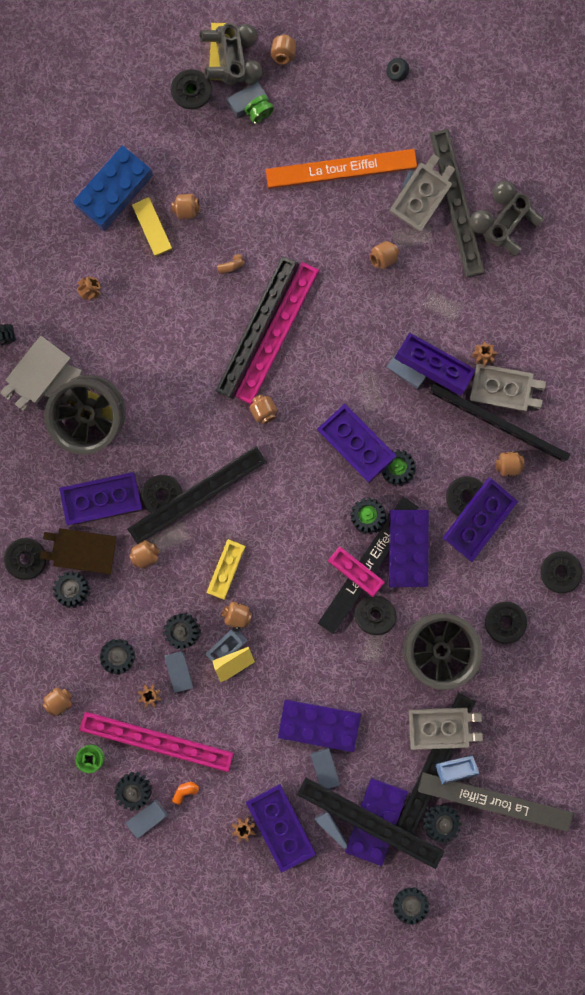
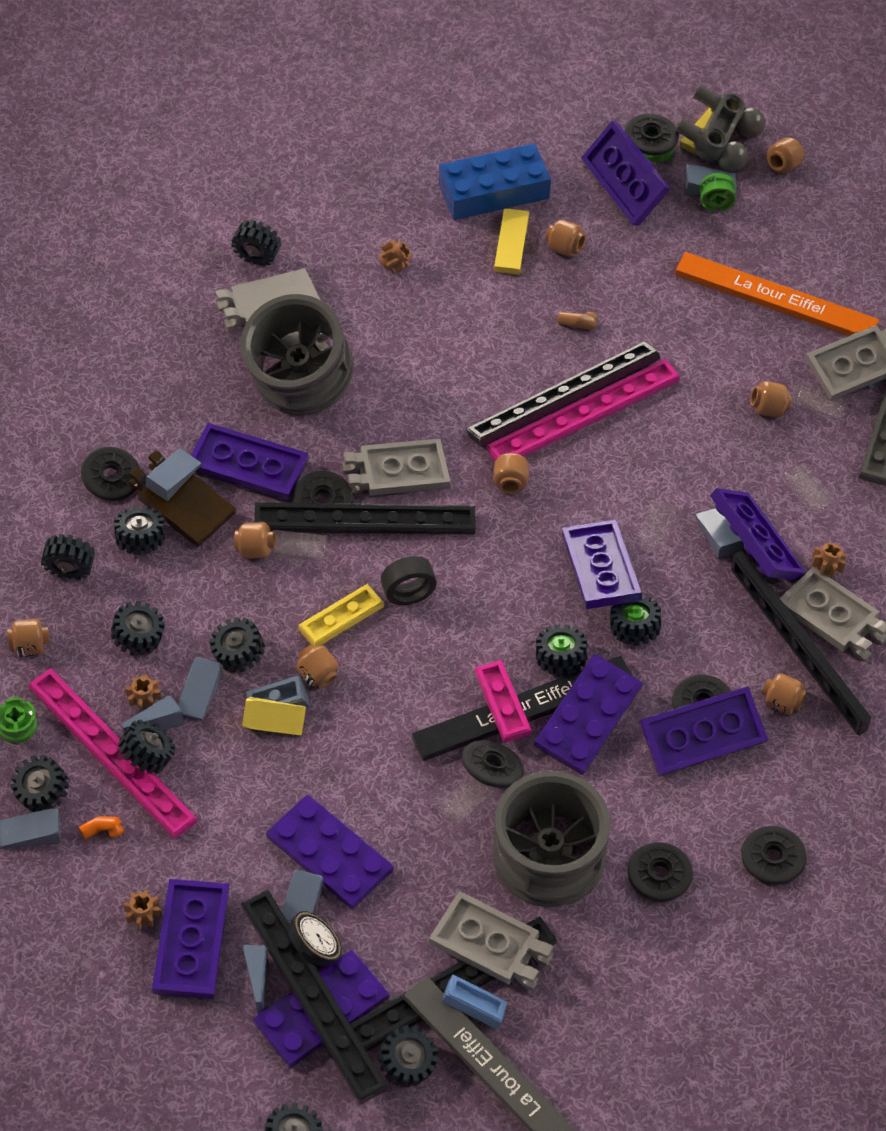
camera: 30 degrees right, 30 degrees down
(44, 637) = (67, 557): none -> black wheel
(65, 540) = (172, 474): none -> sand blue slope
(171, 701) = (163, 713): none -> sand blue slope
(178, 732) = (146, 746): none -> black wheel
(193, 131) = (625, 173): none -> dark purple plate
(193, 444) = (397, 467): none -> light grey tile
(253, 527) = (406, 569): none -> black tyre
(350, 789) = (315, 938): none -> tile

